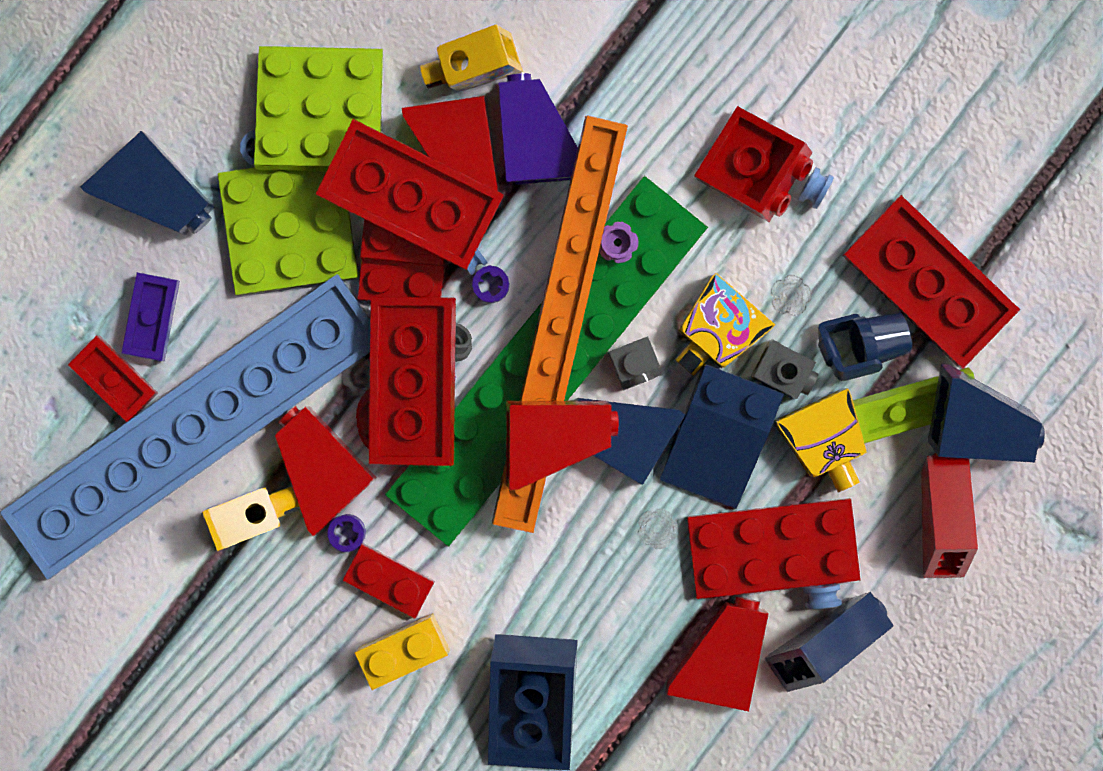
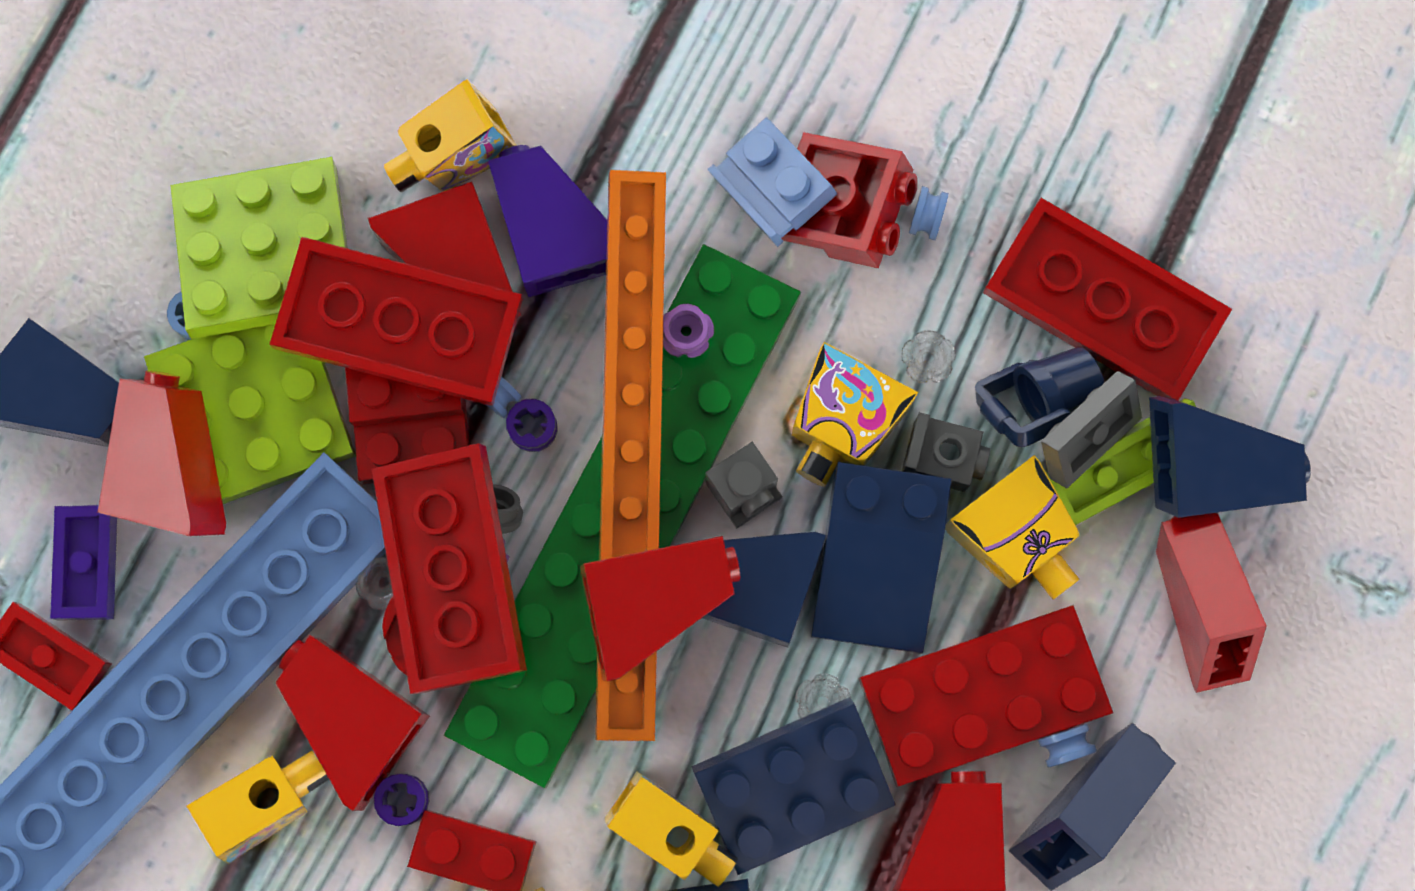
camera: 10 degrees left, 10 degrees down
(221, 257) = (162, 459): none -> slope
(516, 583) = (647, 815): none -> yellow torso
(623, 583) = (794, 785): none -> dark blue plate
(705, 140) = (772, 181): none -> medium blue plate
(893, 379) = (1091, 429): none -> dark grey plate

